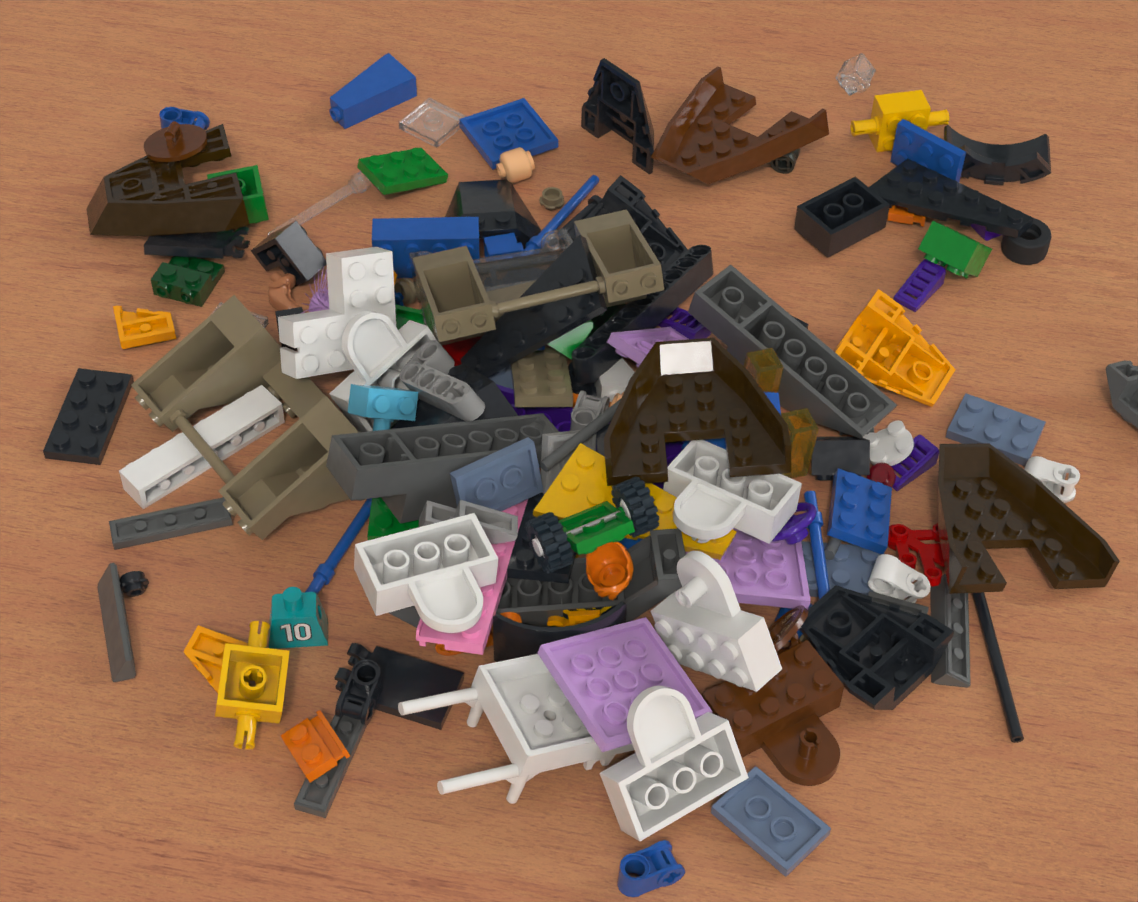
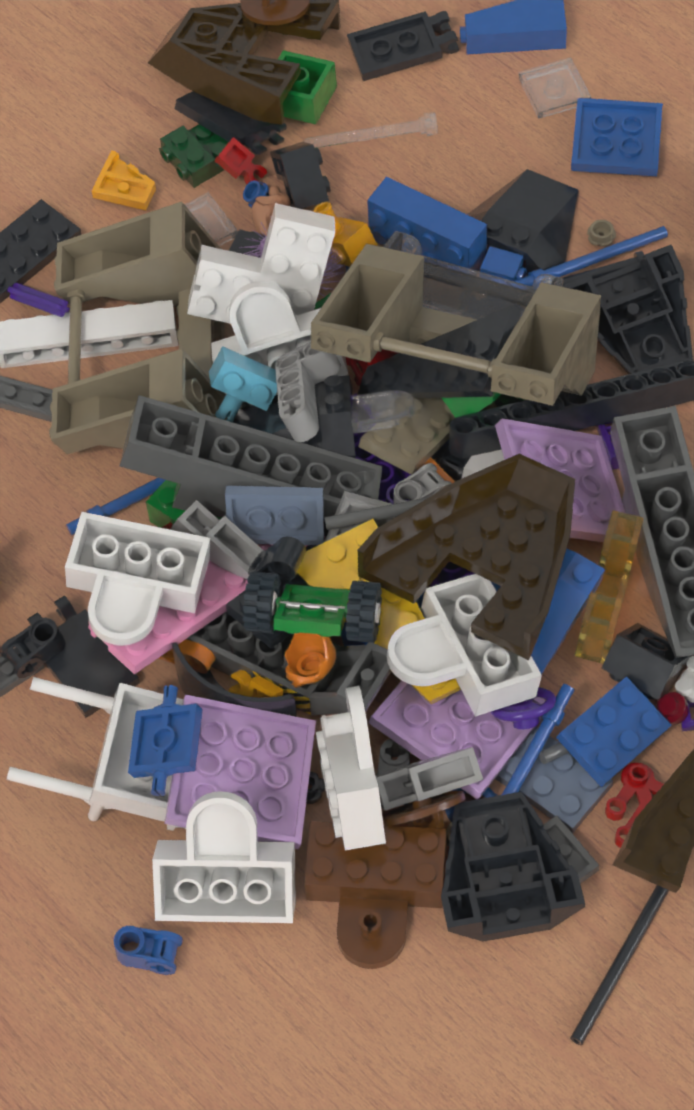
camera: 40 degrees right, 10 degrees up
(143, 437) = (38, 299): none -> dark purple axle
(230, 269) = (237, 160): none -> red plate
(257, 285) = (253, 190): none -> blue plate
(290, 140) = (402, 44): none -> black tile
(297, 620) = (35, 549): teal torso -> none
(402, 171) = (477, 131): green plate -> none
(514, 371) = (380, 410): none -> clear tile
(515, 165) = (591, 178): light nougat head -> none
(537, 500) = (281, 558): none -> black piece
(558, 684) = (165, 740): none -> blue plate
(771, 821) = (285, 973): sand blue plate -> none
(778, 597) = (428, 778): none -> light grey slope
(896, 578) = (583, 818): white piece -> none
(953, 612) = (602, 909): dark grey slope -> none

